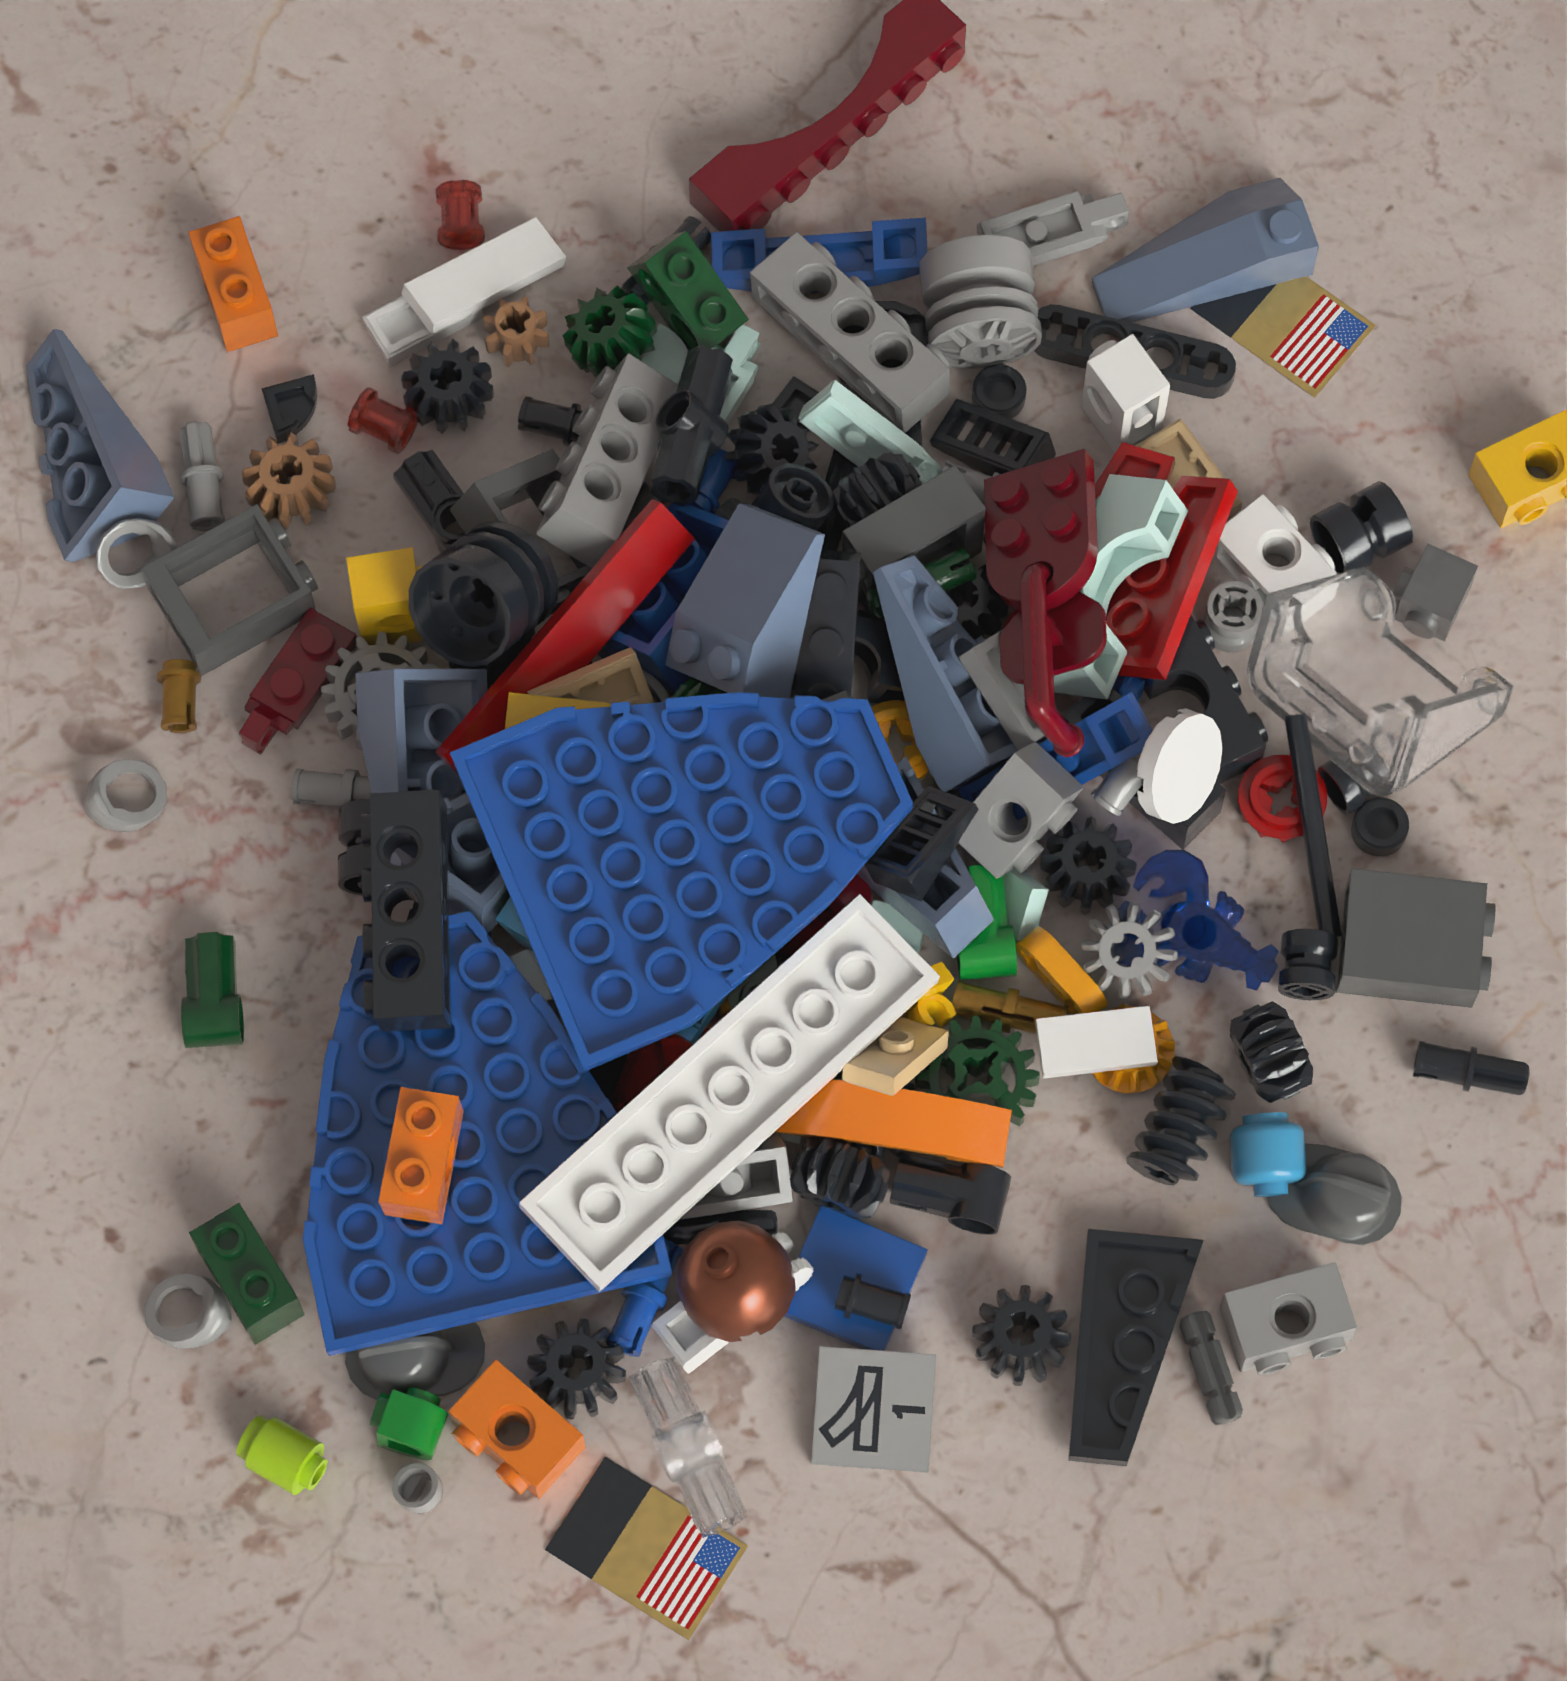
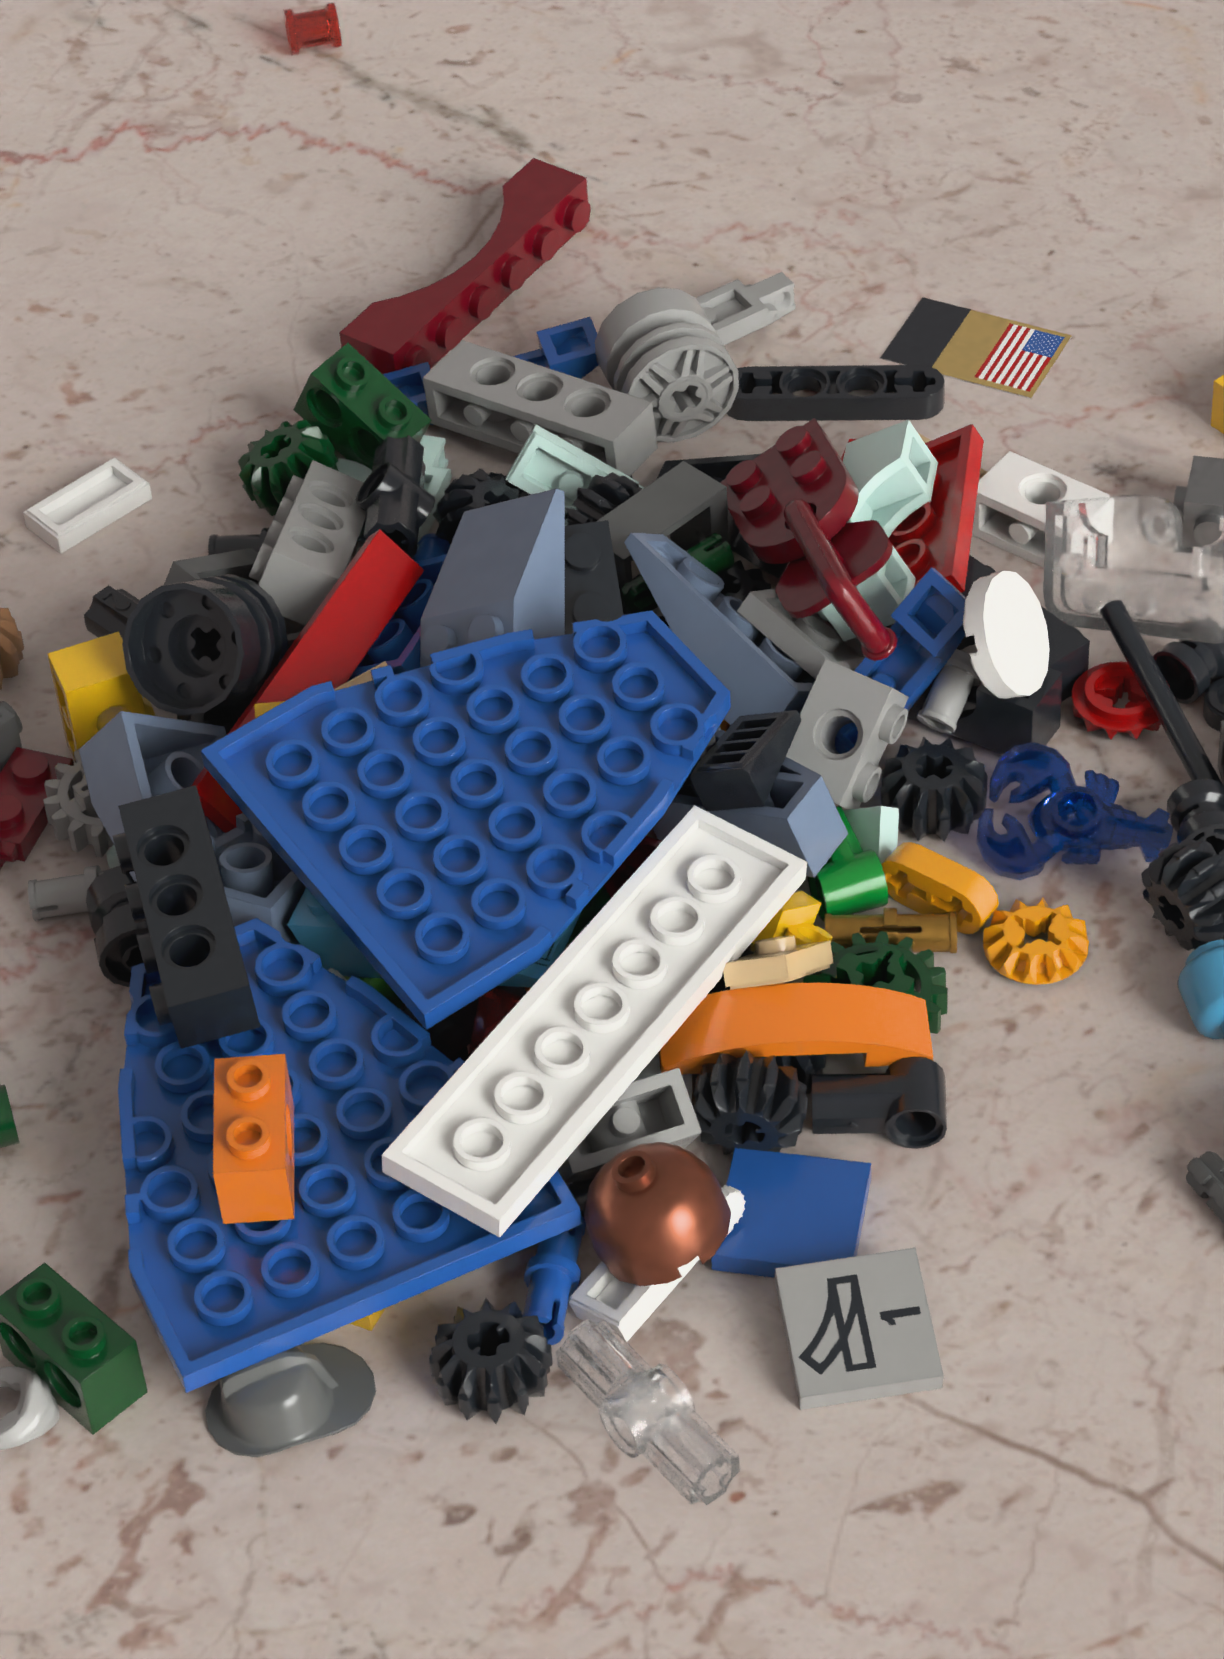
camera: 10 degrees left, 25 degrees down
(282, 1454) = (150, 1525): lime brick -> none
(382, 420) = (43, 583): clear red bush -> none
(409, 1422) = (299, 1459): green plate -> none
(409, 1485) = (318, 1526): light grey hinge -> none
(459, 215) = (111, 423): clear red bush -> none
(465, 394) = (126, 543): black gear -> none
(483, 275) = (144, 453): white tile -> none
(503, 1398) = (472, 1432): orange brick -> none
(528, 325) = (189, 489): medium nougat gear -> none
(645, 1548) = (624, 1538): sticker -> none
(872, 1301) = (823, 1214): black pin -> none
(999, 390) = (706, 442): black tile -> none
(1044, 1339) = (1008, 1217): black gear -> none
(1096, 1042) = (998, 926): white tile -> none
(1124, 392) = (840, 389): white brick -> none
(1125, 1325) = (1125, 1195): black wing -> none
(1140, 965) = (1013, 814): light grey gear -> none
(1180, 1123) = (1119, 985): black piece -> none
(1222, 250) = (899, 306): sand blue wedge -> none
(1233, 628) = (1016, 548): light grey wheel -> none
(1367, 527) = (1126, 460): black wheel -> none

